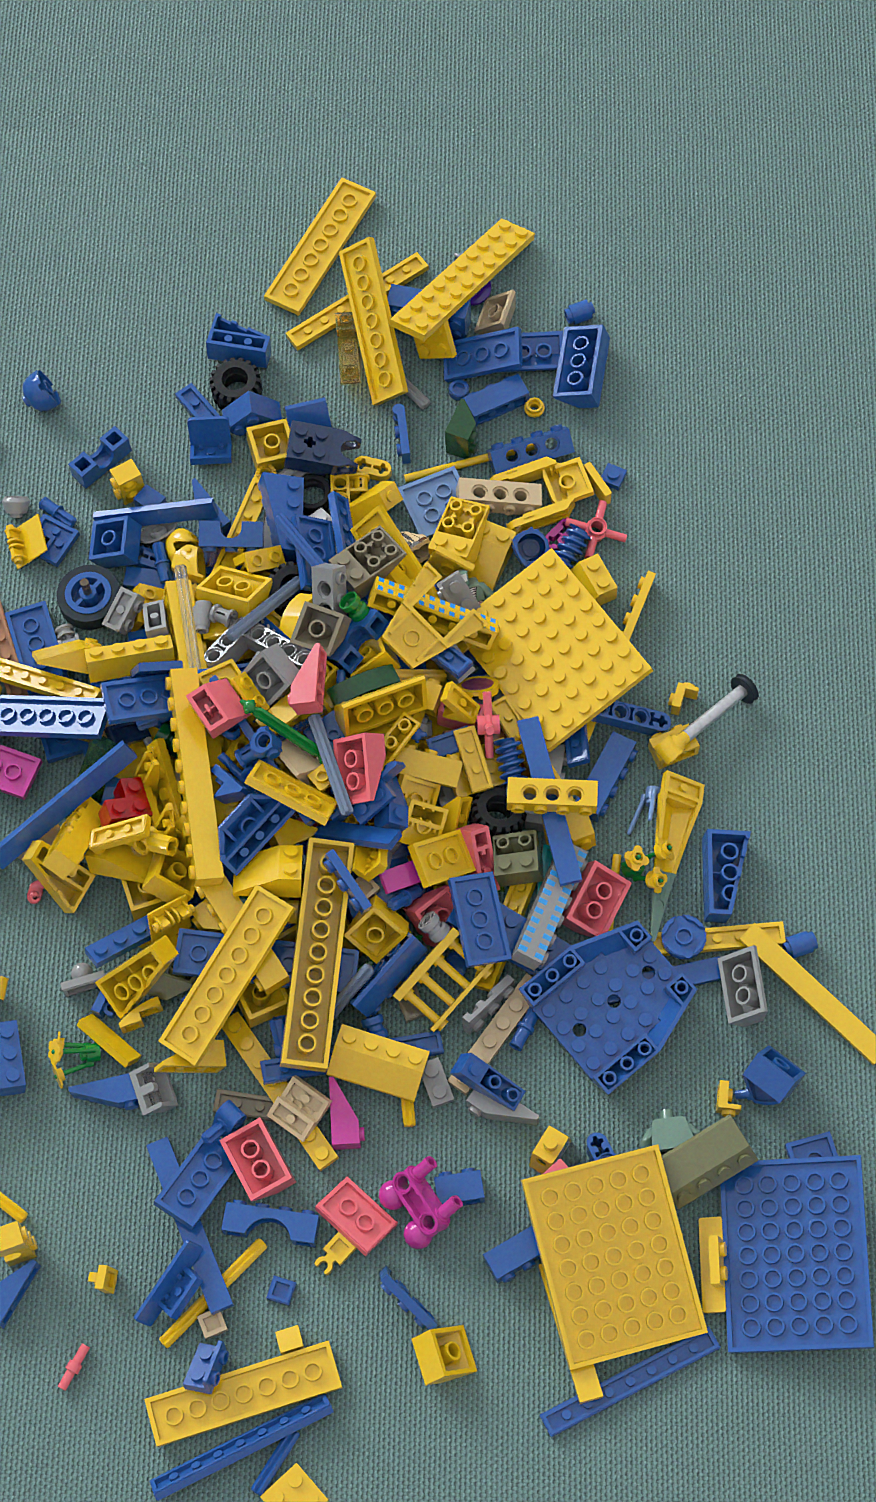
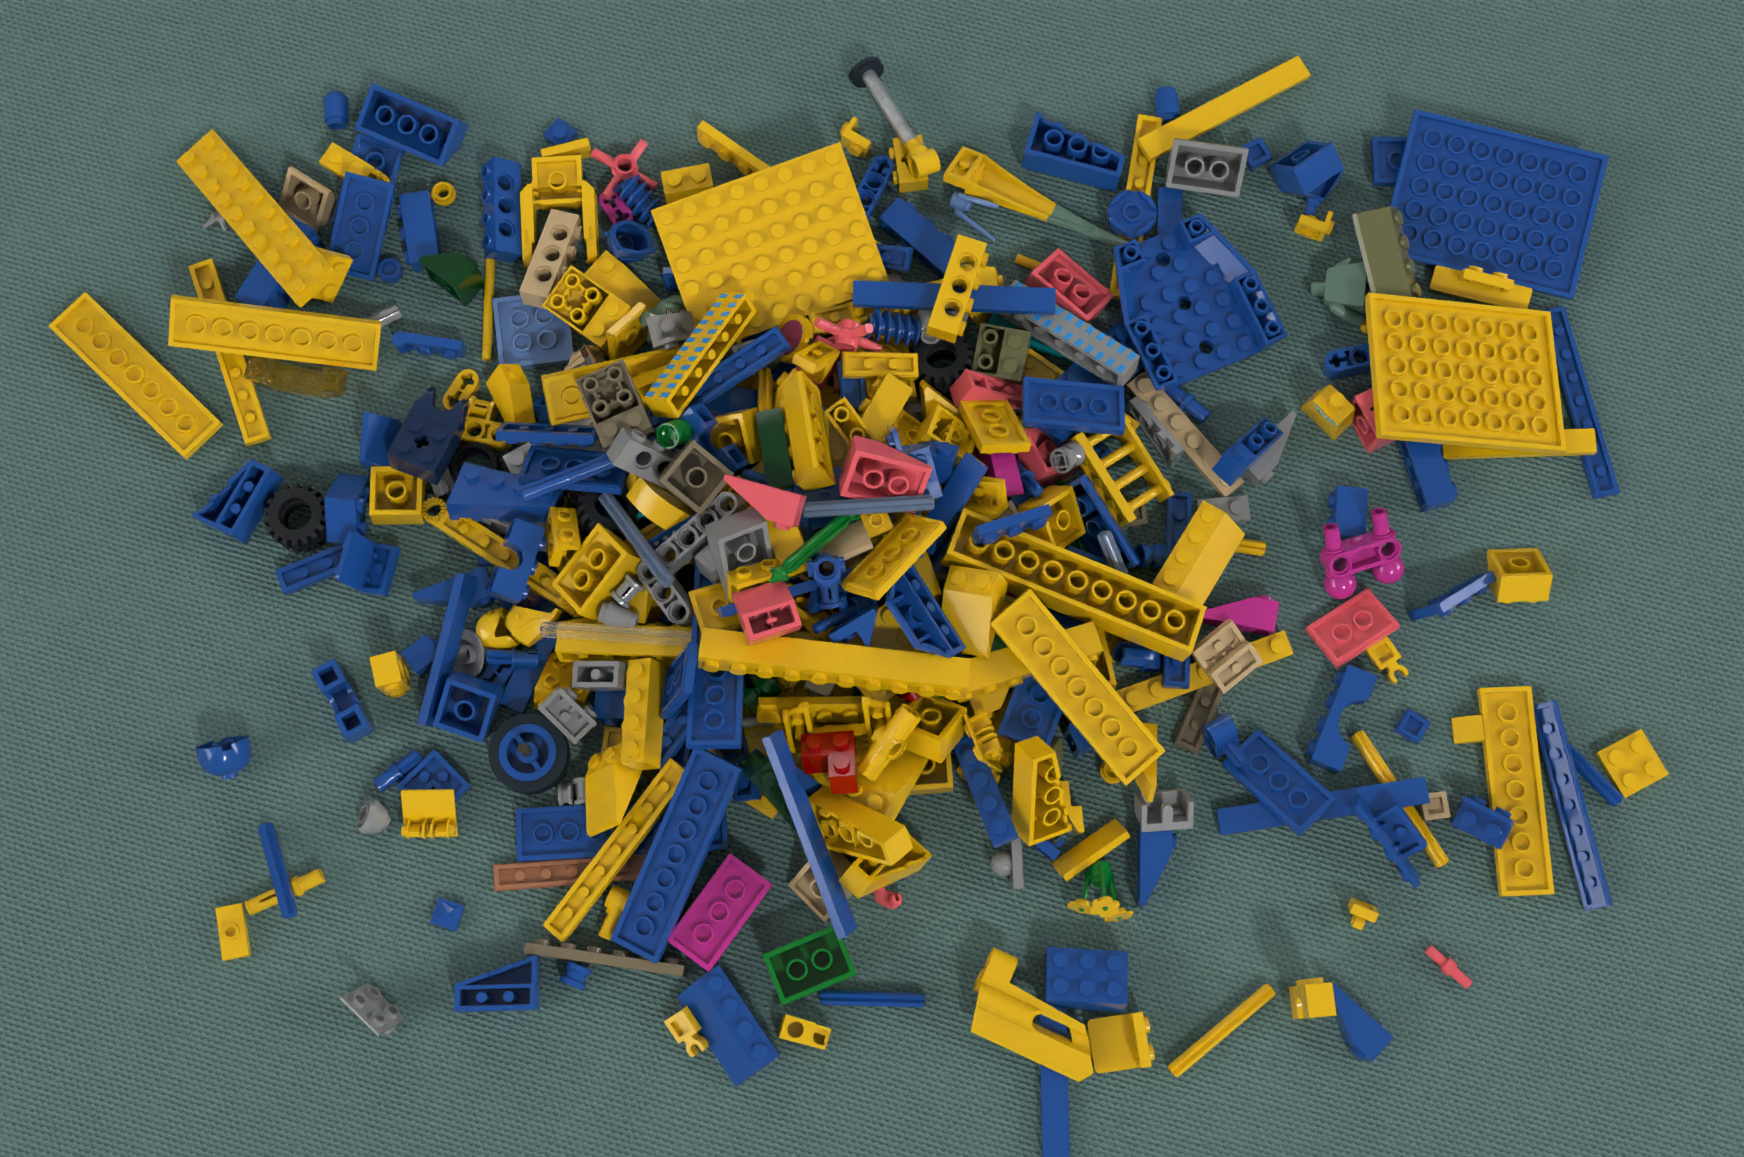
camera: 80 degrees left, 10 degrees up
(120, 833) = (874, 768): yellow tile -> none
(257, 1160) = (1273, 714): coral slope -> none
(413, 636) = (729, 378): yellow wing -> none
(531, 332) = (340, 160): none -> yellow hinge
(636, 861) = (1041, 230): yellow plant -> none
(777, 1030) = (1257, 154): none -> blue tile

